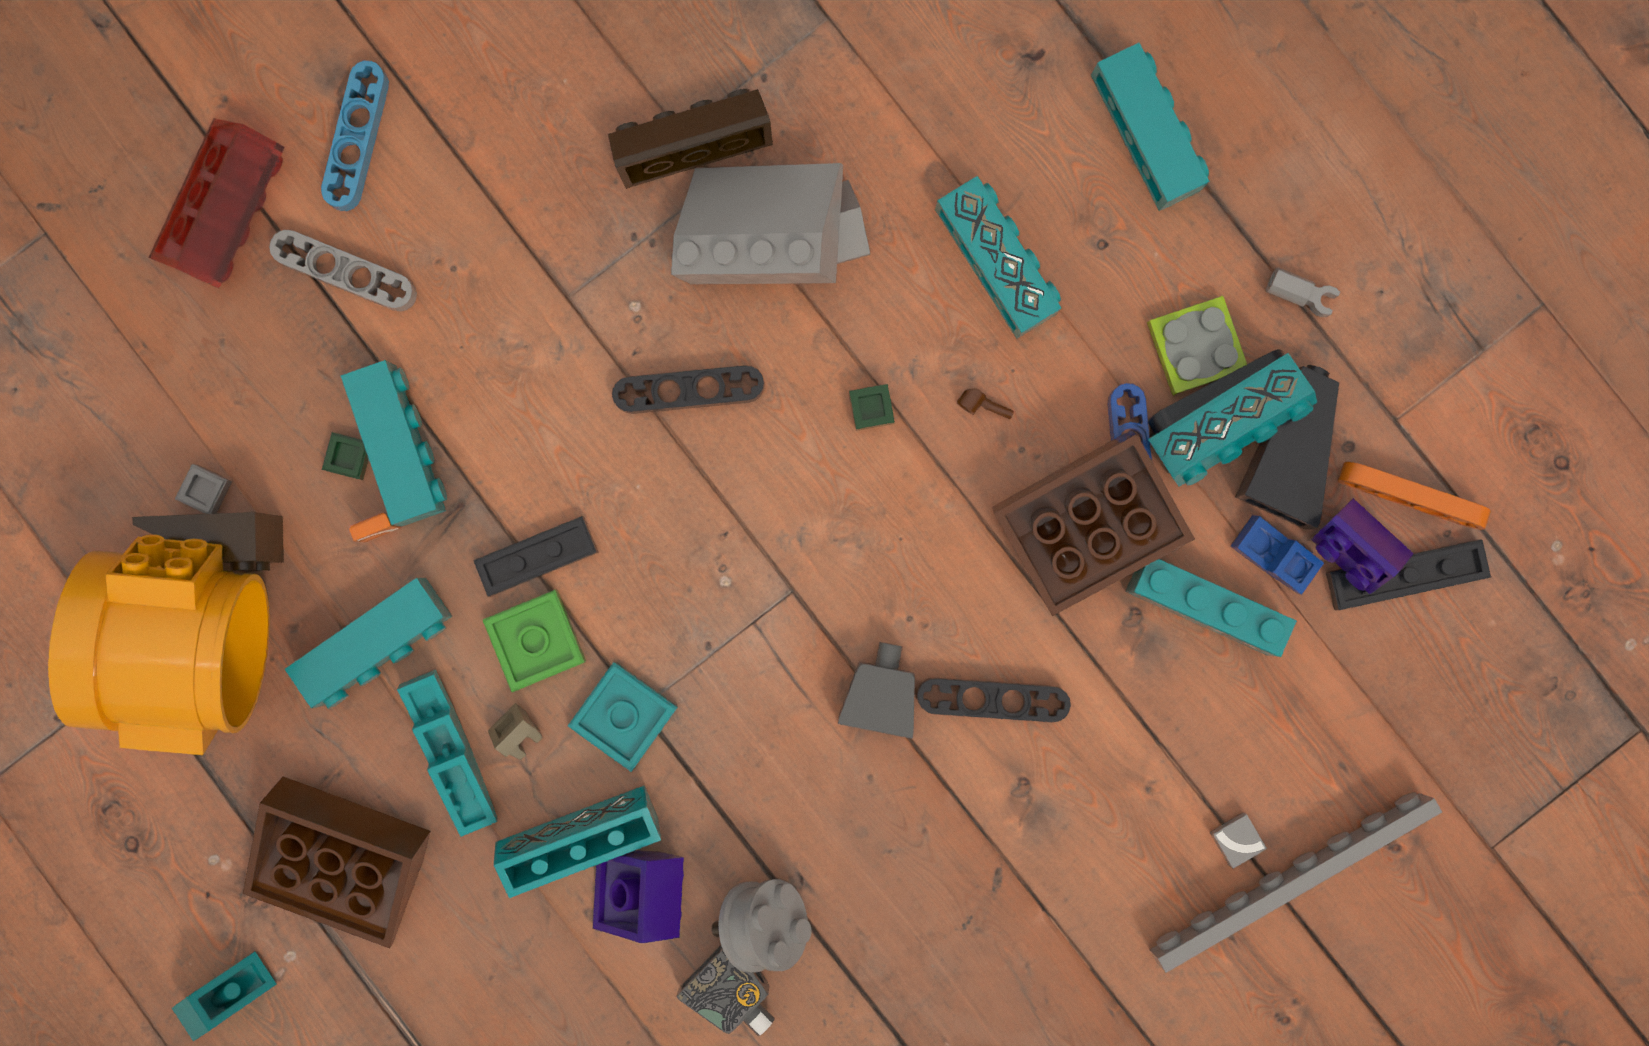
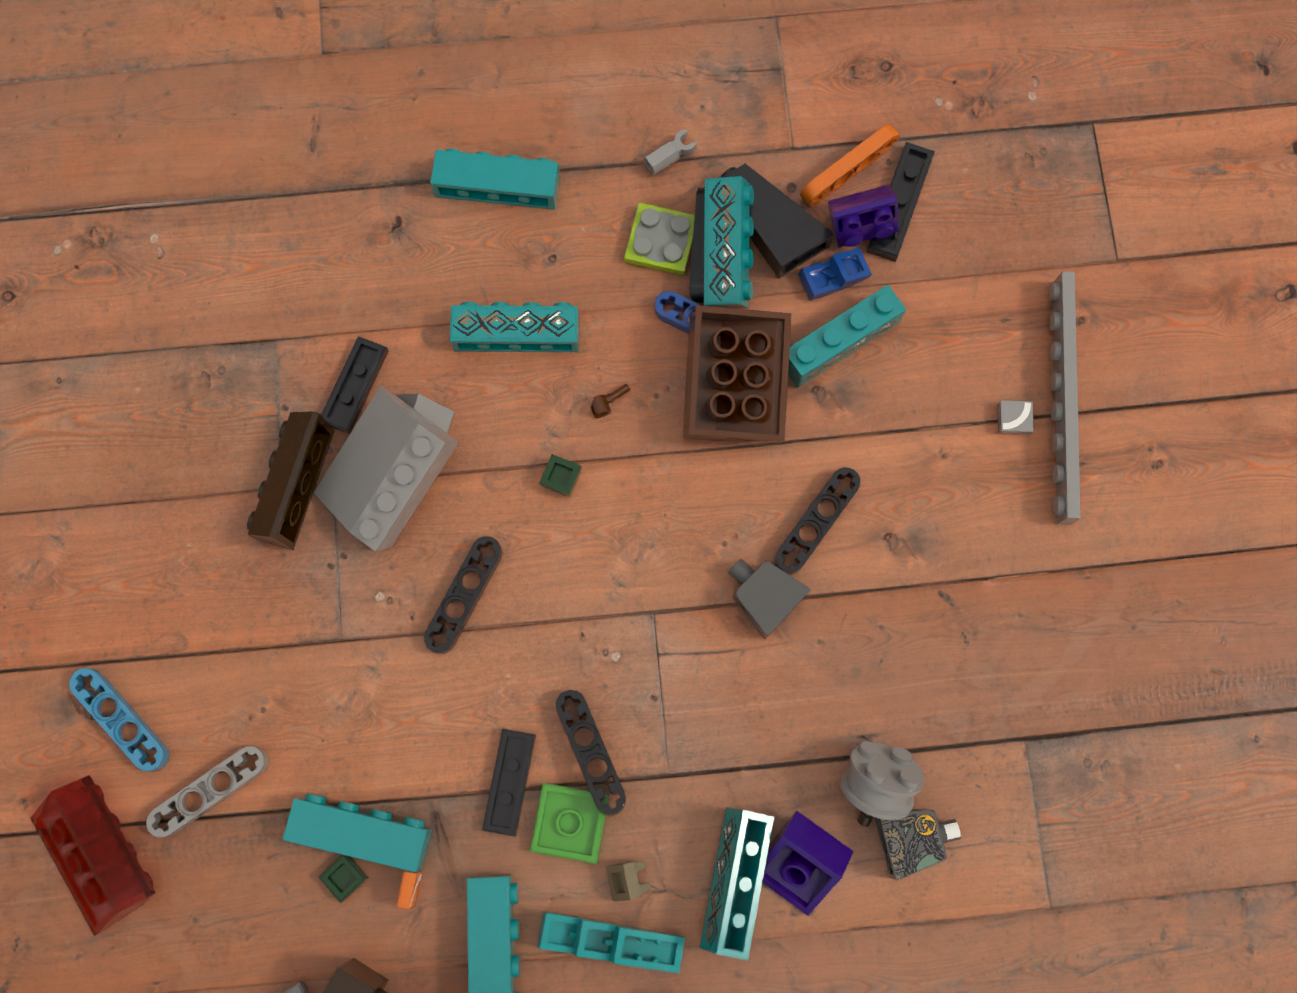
camera: 55 degrees left, 10 degrees down
(609, 615) = (594, 750): none -> black beam
(622, 716) = (666, 792): teal tile -> none
(832, 131) = (354, 384): none -> black tile

